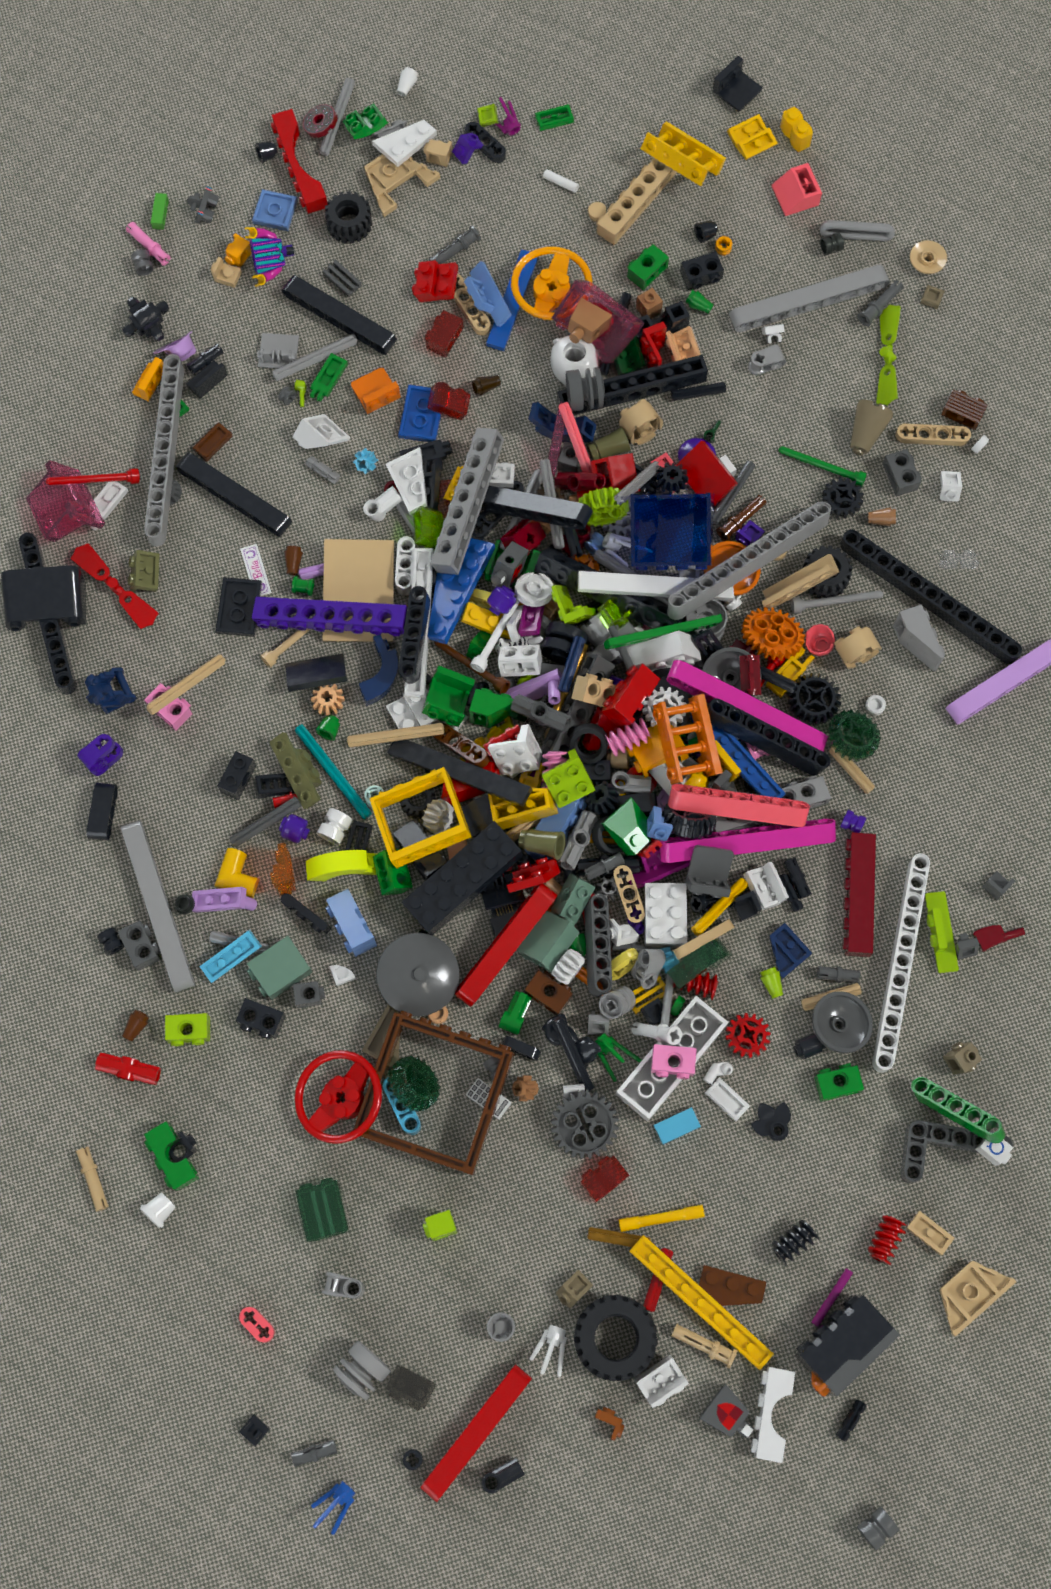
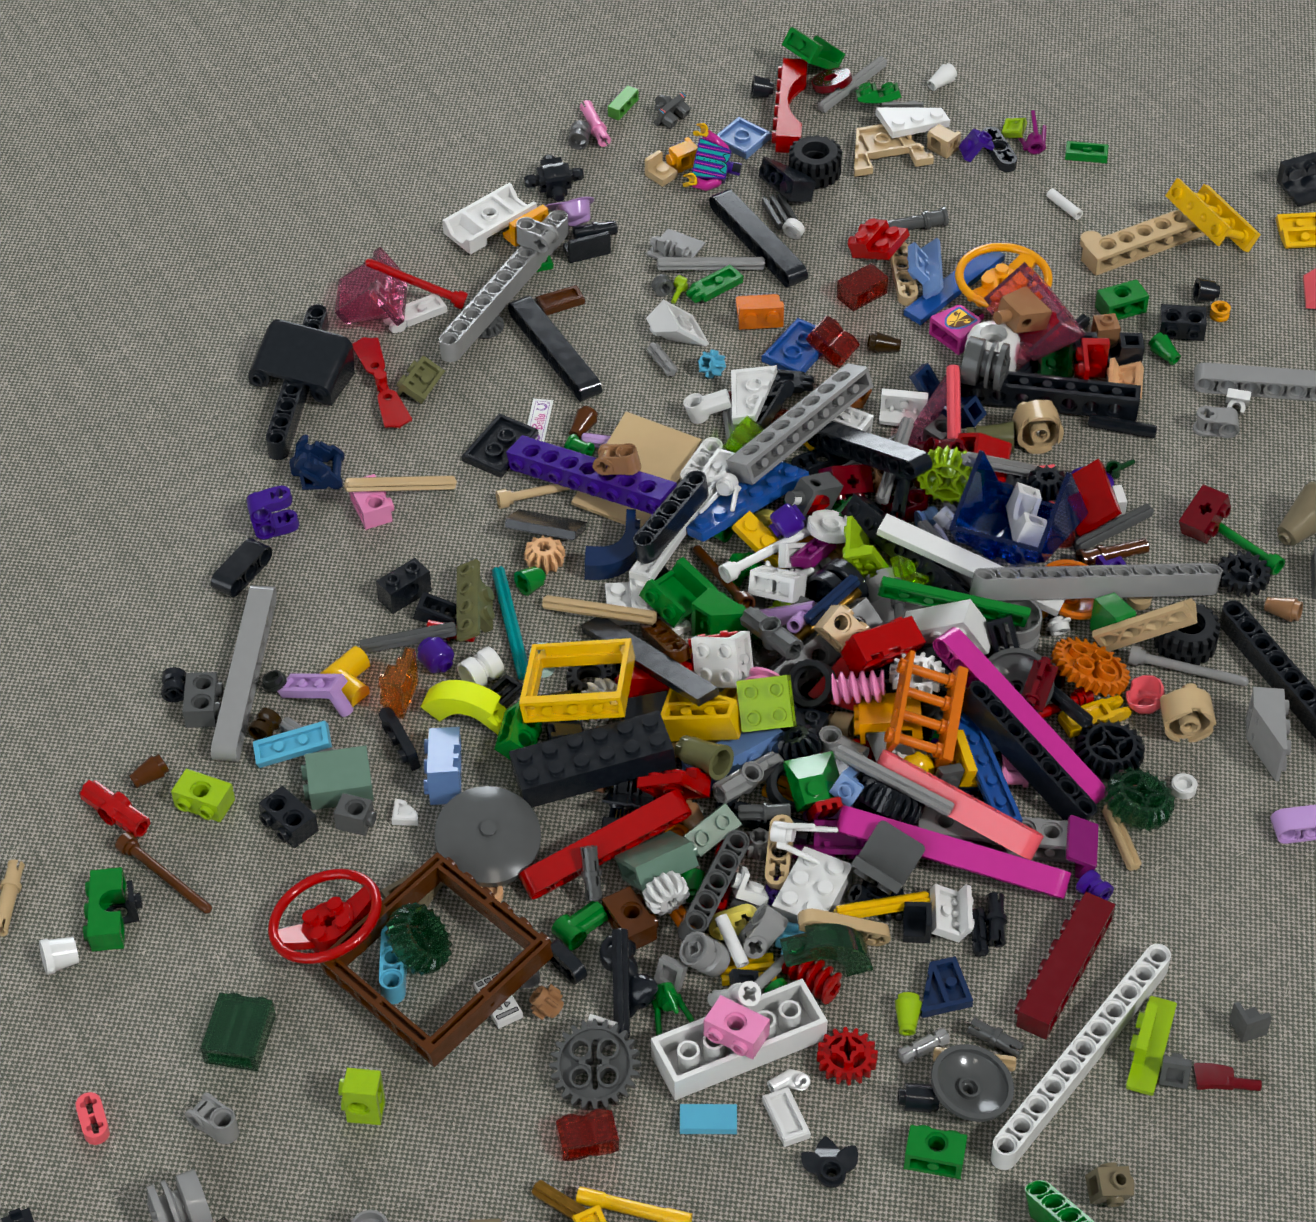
camera: 25 degrees right, 25 degrees down
(107, 399) = (471, 224): none -> white piece
(157, 1095) = (129, 845): none -> reddish brown piece
(169, 394) = (533, 234): none -> light grey piece
(199, 947) = (266, 723): none -> dark brown wheel
(293, 97) = (814, 51): none -> green panel
(335, 246) = (787, 181): none -> black slope
(346, 601) = (620, 458): none -> medium nougat piece
(362, 294) = (793, 228): none -> white tile
(438, 585) = (725, 486): none -> white plant
(508, 974) = (591, 873): none -> dark grey pin
(531, 445) = (900, 403): none -> white bracket
(535, 345) = (954, 325): none -> dark pink torso
(630, 881) = (785, 832): none -> white plant
(634, 986) = (732, 941): none -> white piece
(667, 512) = (1022, 515): none -> white arch
(690, 809) = (894, 780): none -> light grey axle
(770, 581) = (1109, 610): none -> green slope
(789, 465) = (1205, 514): none -> dark red brick
(793, 1001) = (923, 1045): none -> light grey axle
(832, 792) = (1082, 844): none -> magenta panel

